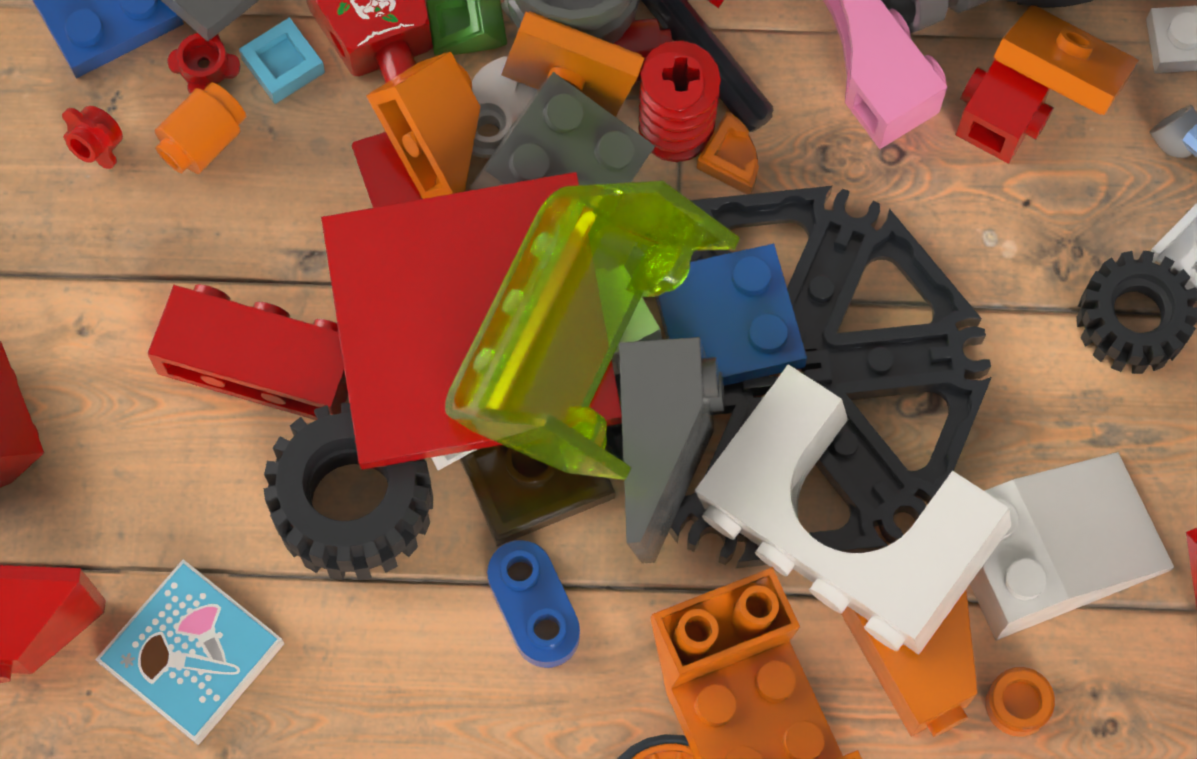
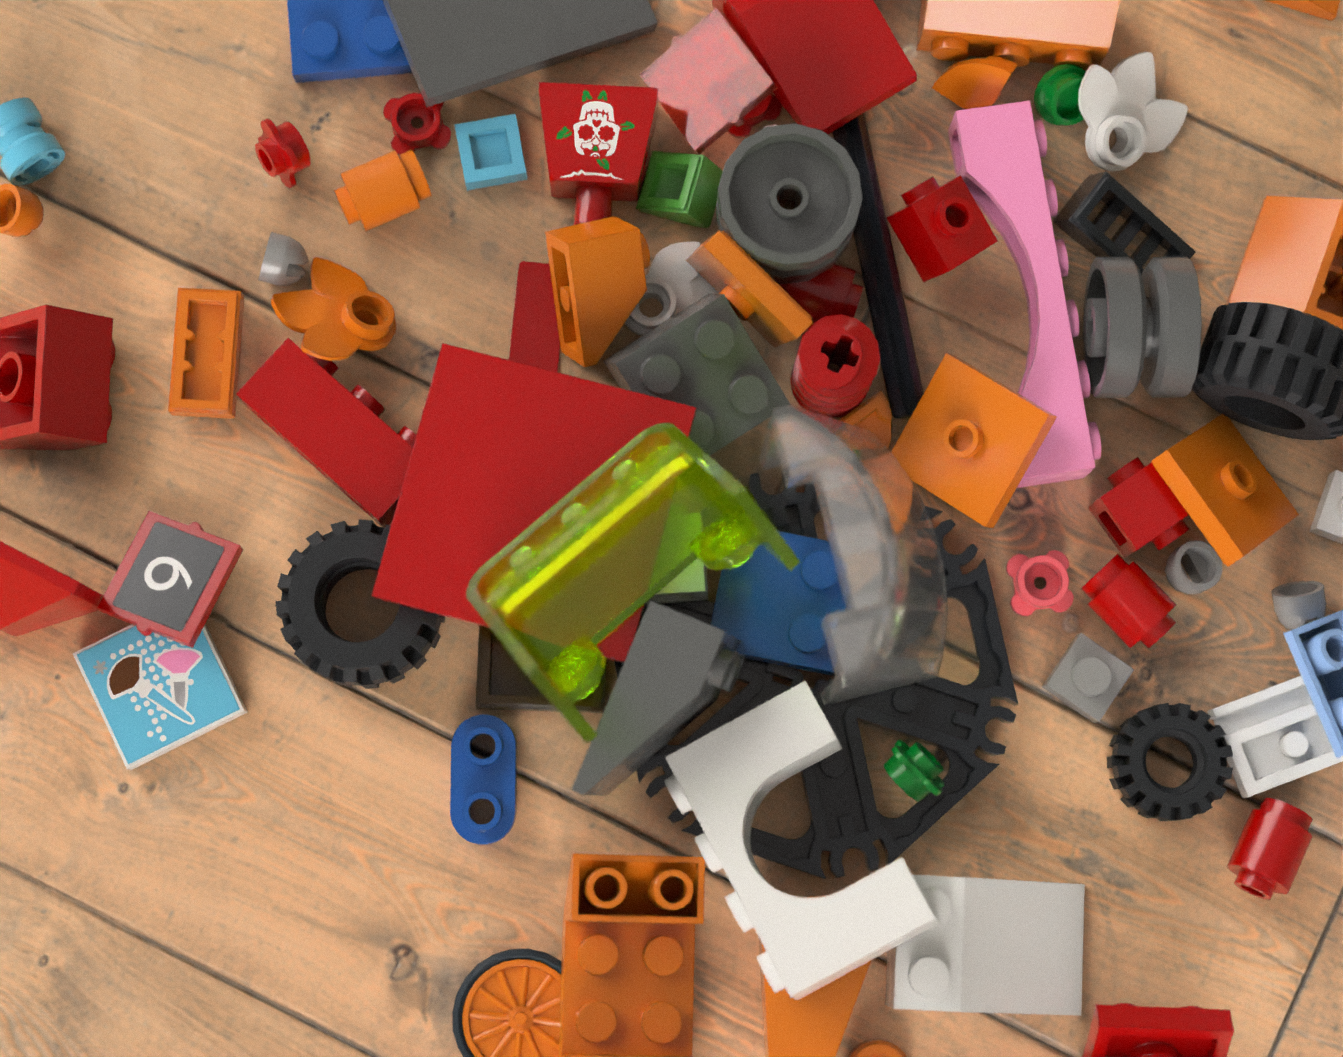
camera: 20 degrees right, 10 degrees up
(101, 339) = (206, 353): none -> orange plate
(130, 230) = (282, 261): none -> light grey hinge
(158, 551) = (170, 579): none -> piece
(207, 251) = (336, 313): none -> orange plate
(827, 112) = (971, 440): none -> orange plate
(830, 259) = (880, 549): none -> clear windscreen
(921, 408) = (914, 770): none -> green plate
(947, 195) = (1049, 567): none -> coral plate
(1029, 275) = (1087, 678): none -> light grey plate
(1033, 192) = (1130, 602): none -> red brick
(1073, 140) = (1200, 564): none -> light grey hinge

